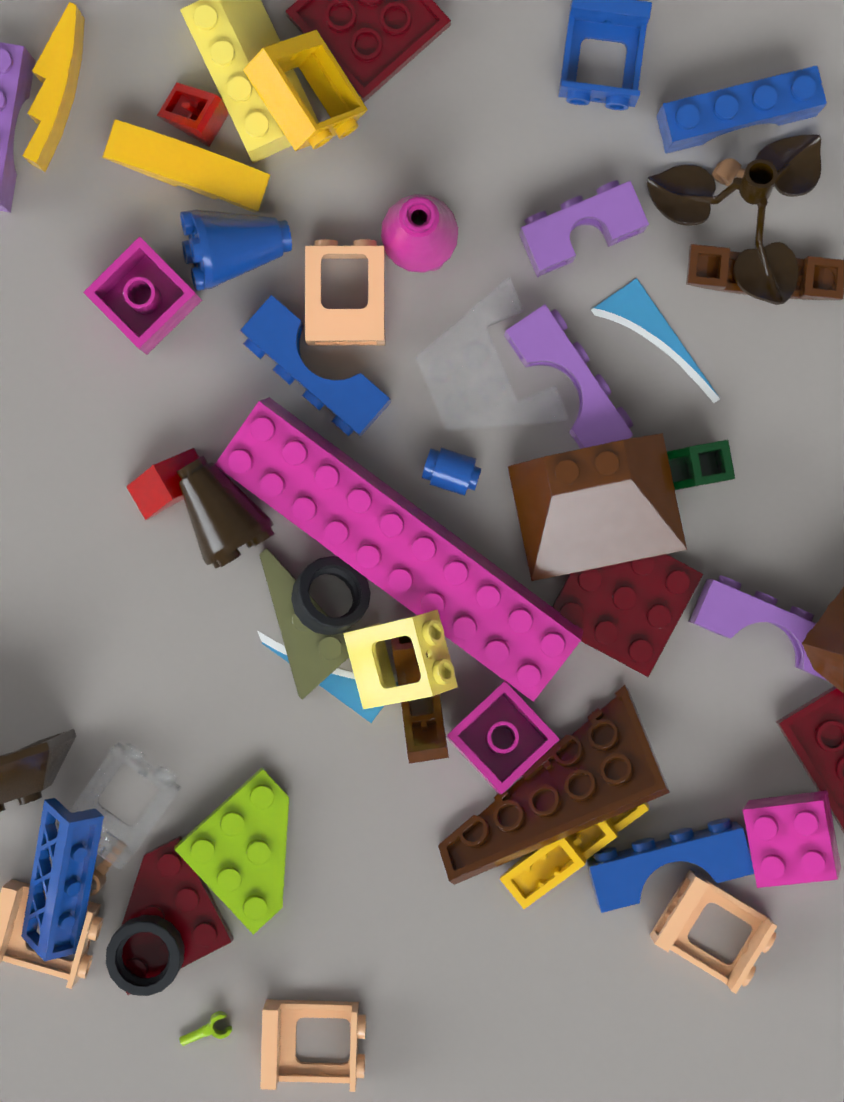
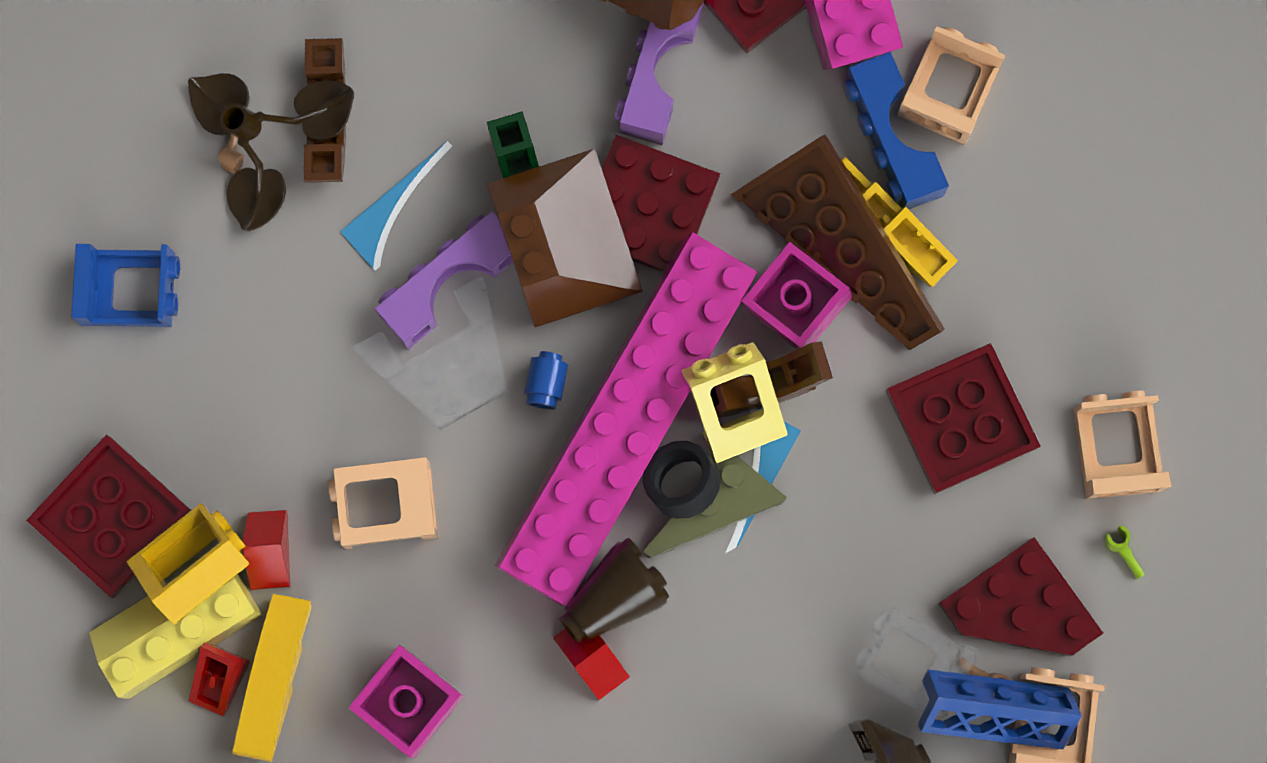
camera: 100 degrees left, 10 degrees down
(119, 972) = (1086, 601): black tyre -> none
(230, 244) = (347, 622): blue cone -> none
(243, 850) = (942, 536): lime plate -> none
(278, 334) = (432, 565): blue arch -> none
(316, 173) = (267, 549): none -> red slope
(360, 889) = (962, 418): none -> dark red plate
(419, 246) = (325, 448): dark pink cone -> none
(612, 211) = (280, 257): medium lavender arch -> none
(763, 101) = (169, 152): blue arch -> none

